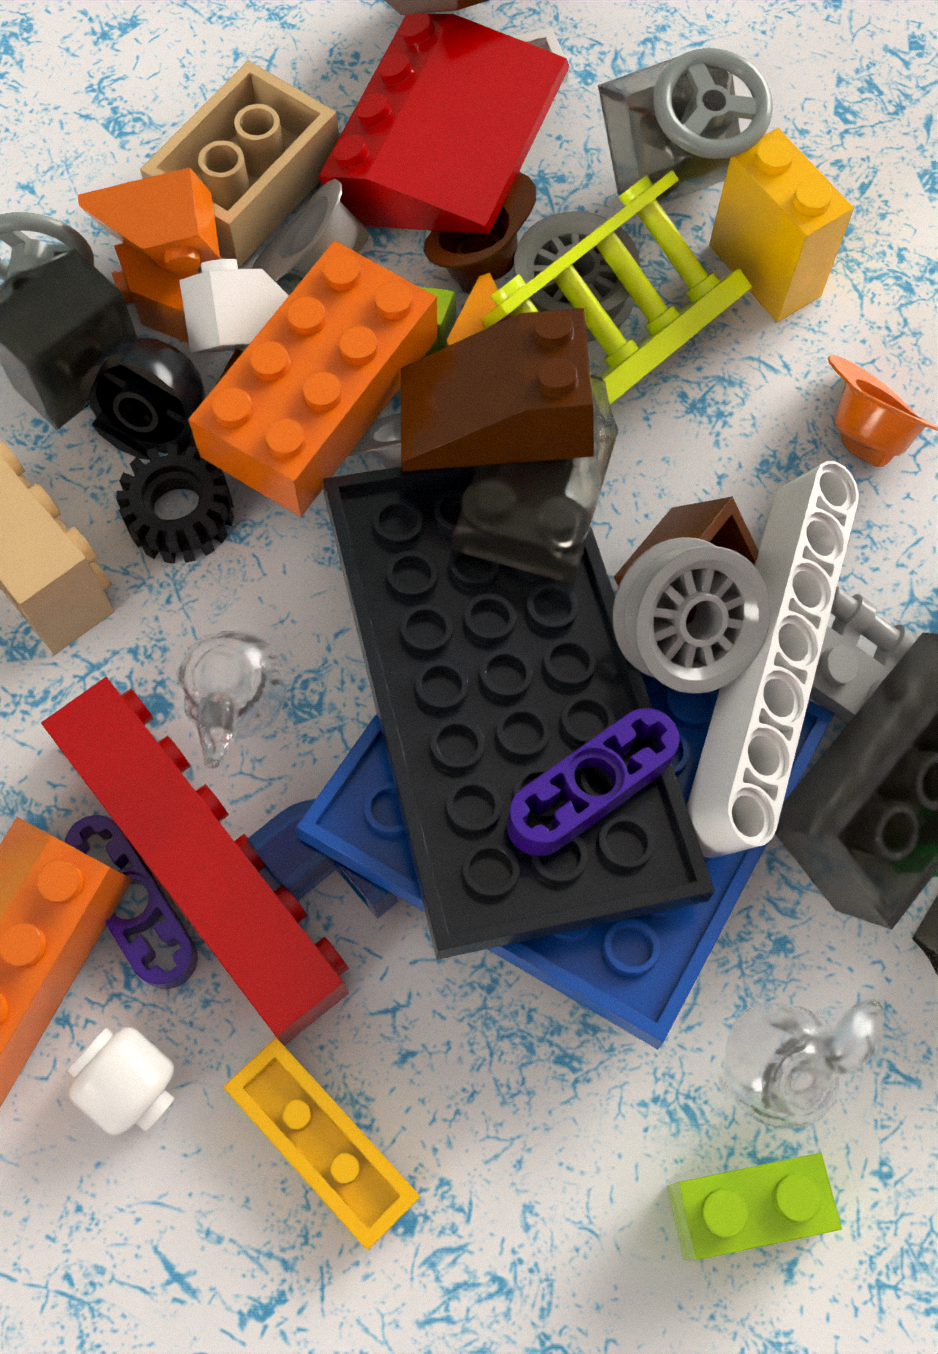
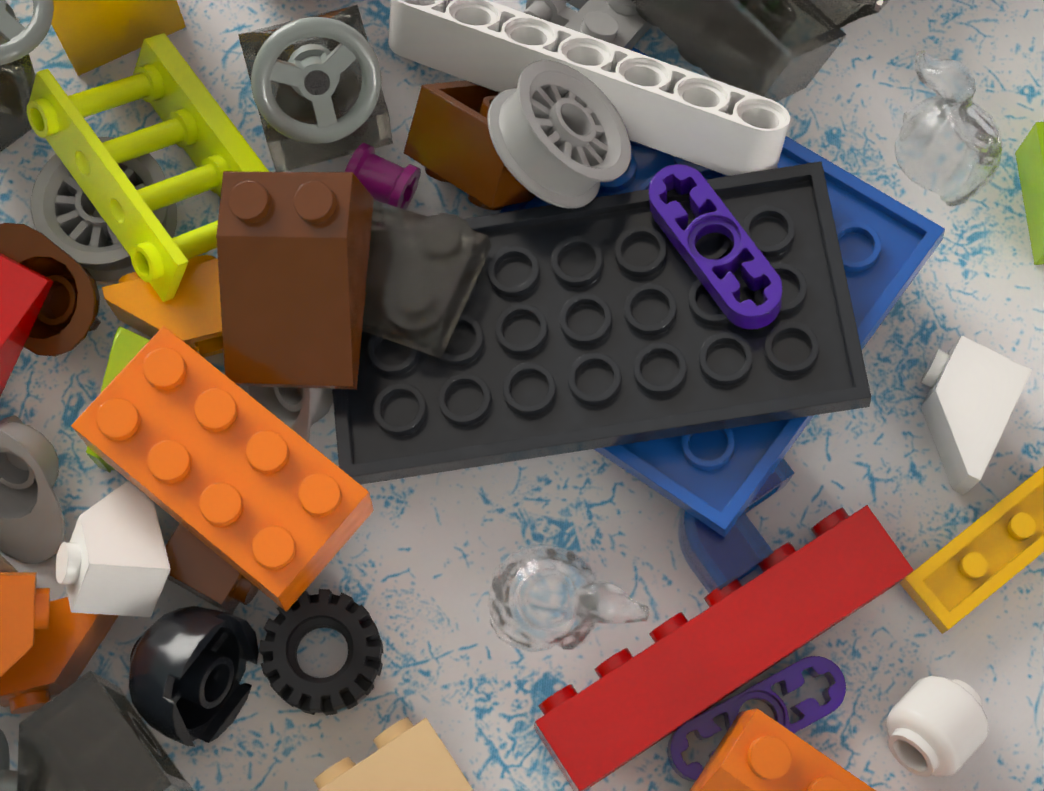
camera: 85 degrees left, 5 degrees up
(475, 1102) = (970, 407): none -> white slope
(642, 495) = (383, 178): none -> magenta bush
(723, 416) = (316, 88): none -> piece

